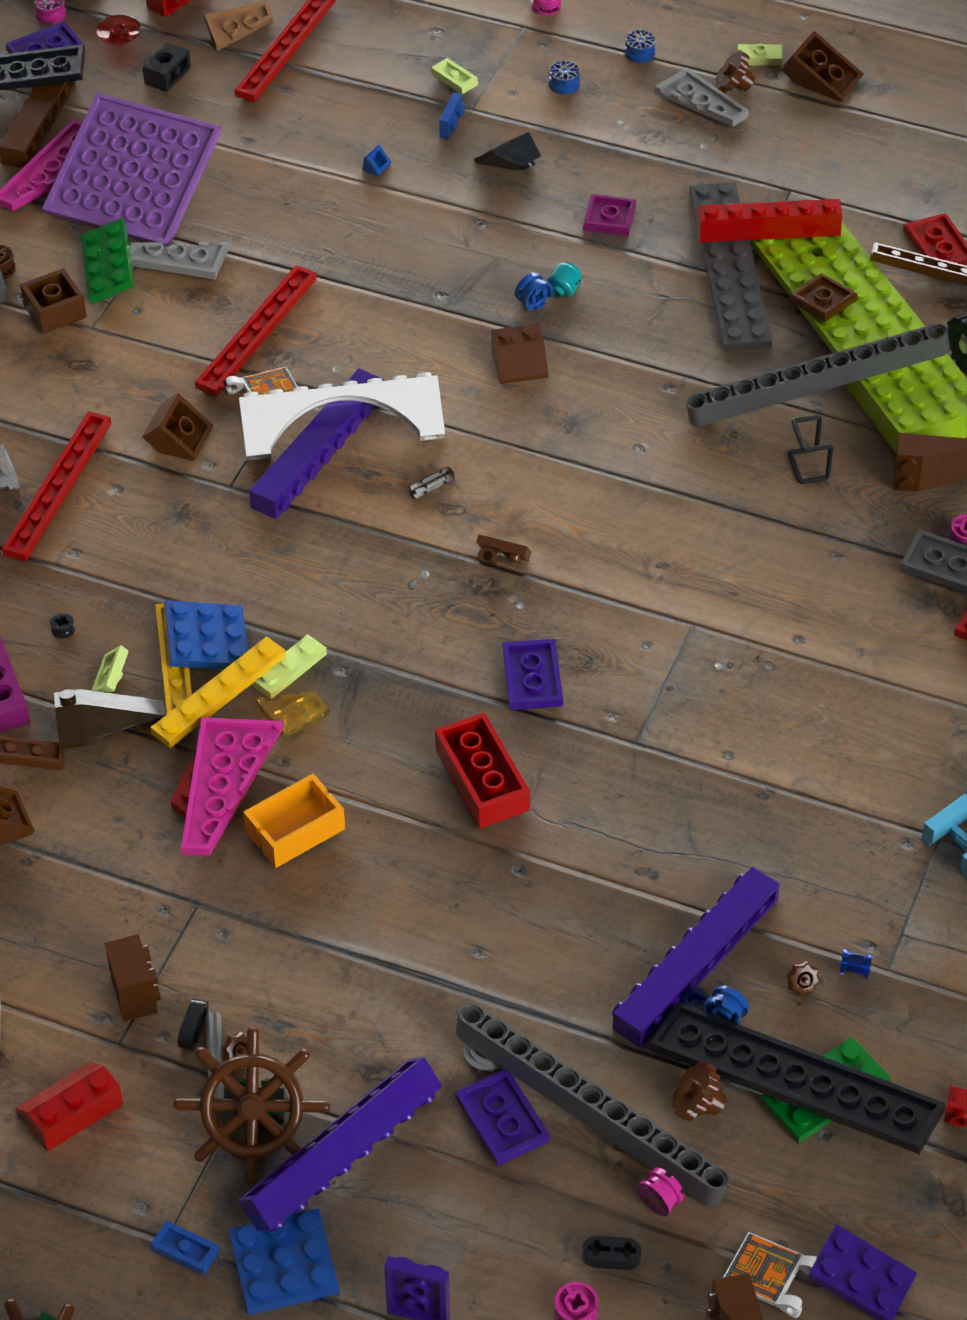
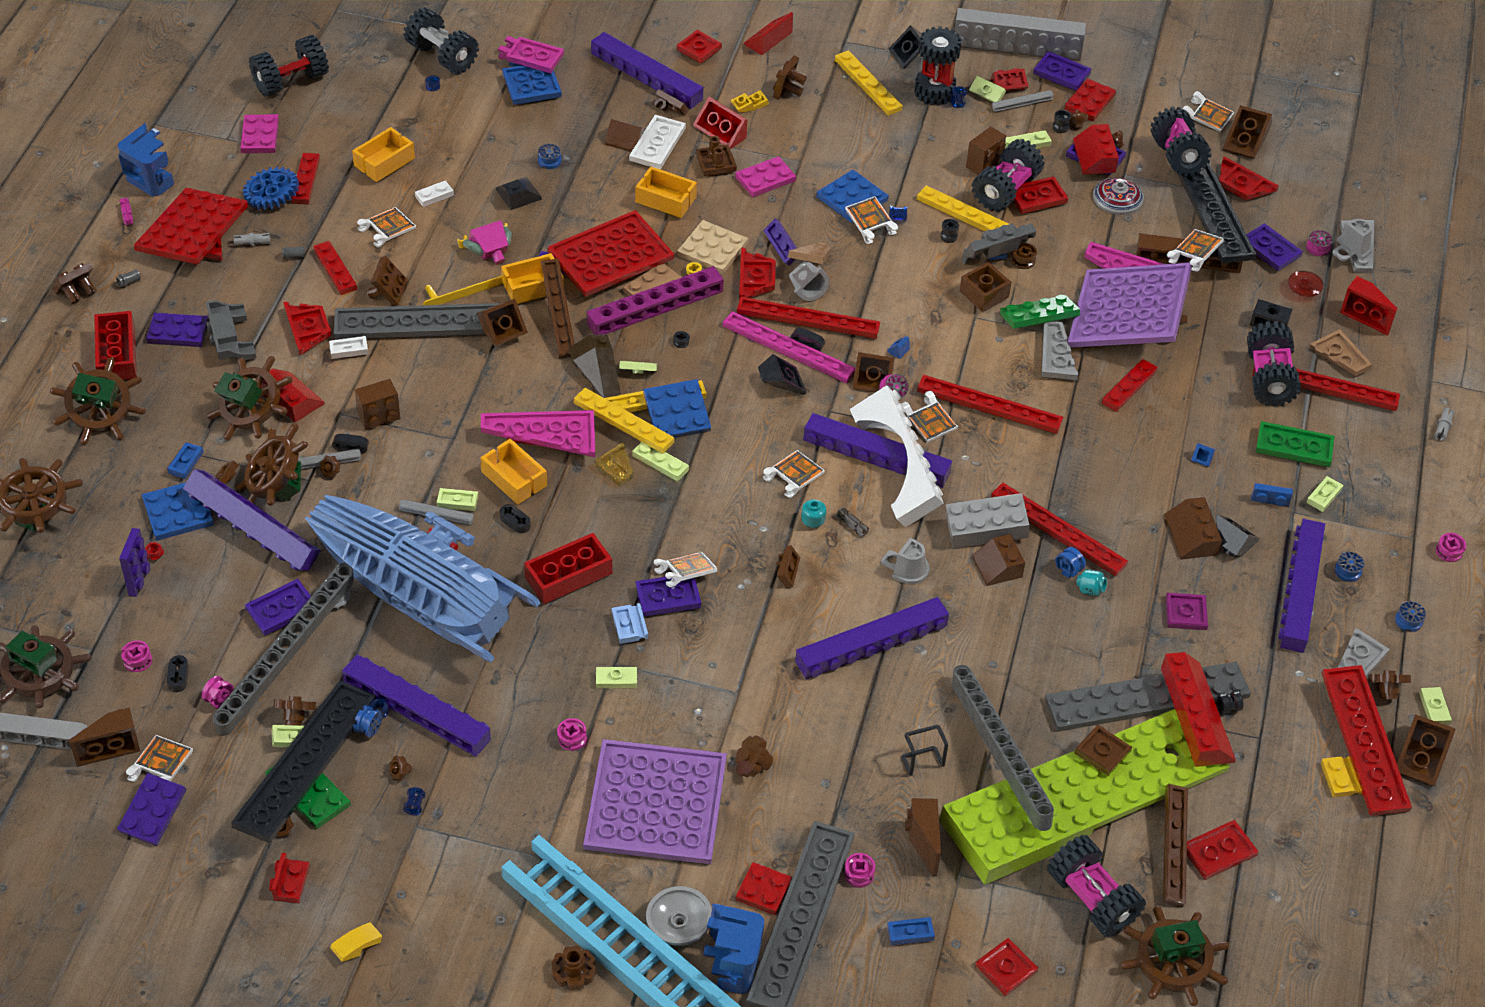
camera: 80 degrees right, 0 degrees up
(47, 94) = (1197, 246): none -> flag
(87, 1145) = (242, 391): none -> reddish brown brick
(101, 489) = (808, 338): none -> black beam
(102, 515) = (789, 347): none -> dark pink tile
(133, 402) = (899, 347): none -> blue slope
(165, 523) = (781, 375): none -> black slope
(214, 409) = (895, 382): none -> wheel
(226, 1191) = (227, 472): none -> reddish brown plate
(247, 205) = (1129, 385): none -> red plate
(257, 71) = (1274, 375): none -> black plate
(327, 896) = (457, 499): none -> yellowish green plate
(335, 527) = (796, 470): none -> flag
(343, 925) = (447, 514): none -> light grey axle
(369, 1282) = (154, 551): none -> red plate
(371, 833) = (512, 520): none -> black beam
(373, 85) = (1295, 444): none -> green plate
(420, 512) = (813, 513): none -> teal head
(462, 350) = (983, 519): none -> light grey brick
(472, 298) = (1067, 533): none -> red plate
(483, 926) = (419, 570): none -> medium blue piece
(490, 646) = (685, 567): none -> flag
(493, 184) = (1193, 529): none -> reddish brown slope
(510, 434) = (911, 563): none -> light grey container
(577, 717) = (629, 623): none -> light blue plate
(587, 115) = (1302, 585): none -> dark purple brick
(628, 483) = (871, 638): none -> dark purple brick
(662, 741) = (616, 677): none -> yellowish green plate
(741, 1105) = (284, 734): none -> yellowish green plate
(747, 193) = (1230, 702): none -> black wheel
(754, 789) = (572, 734): none -> dark pink wheel
(808, 105) = (1366, 740): none -> red plate
(809, 607) = (753, 757): none -> reddish brown plant
(847, 137) = (1340, 776): none -> yellow plate
(863, 713) = (655, 801): none -> medium lavender plate

